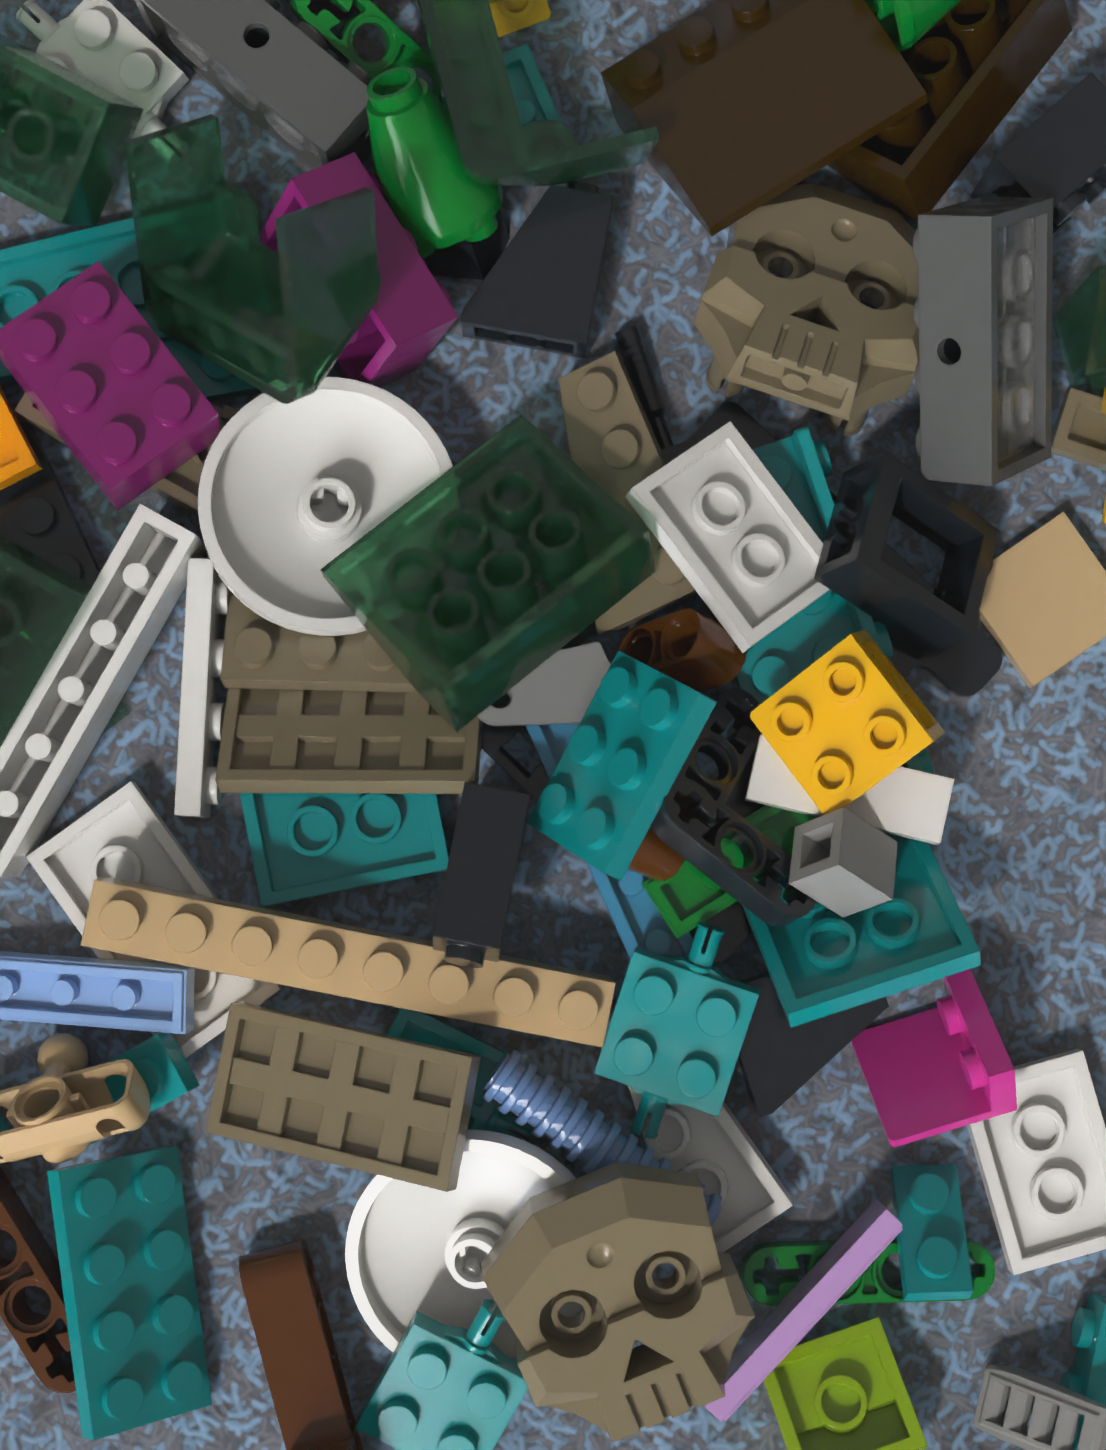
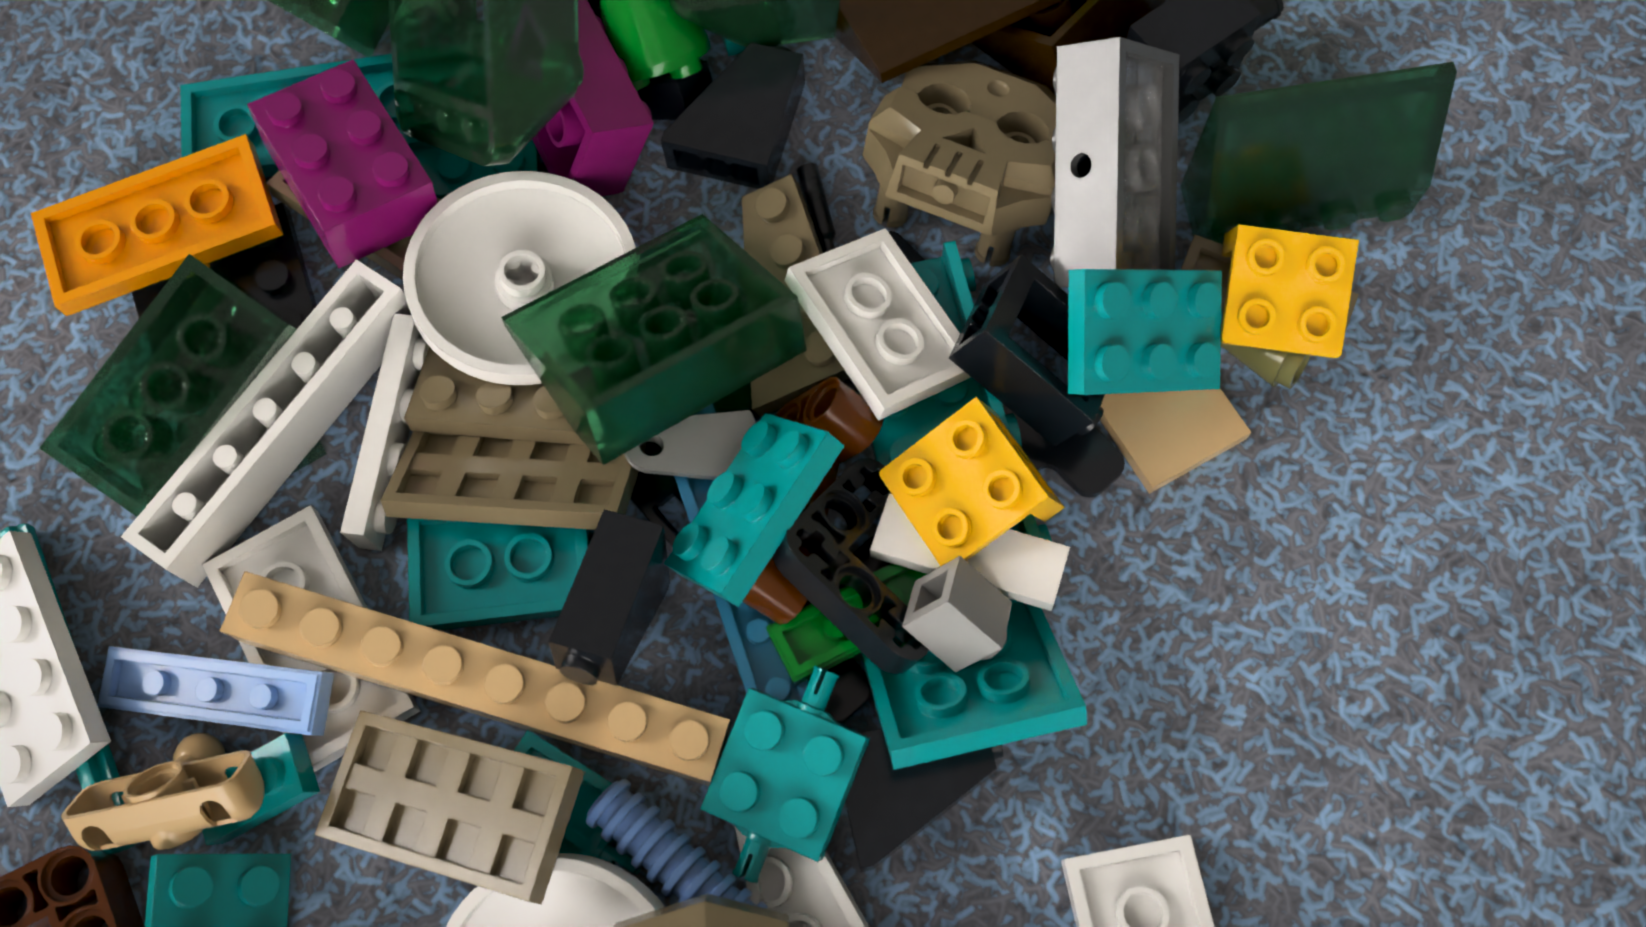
camera: 10 degrees right, 15 degrees down
(938, 1066) = (1045, 835): dark pink bracket -> none
(1023, 529) = (1143, 330): none -> teal plate

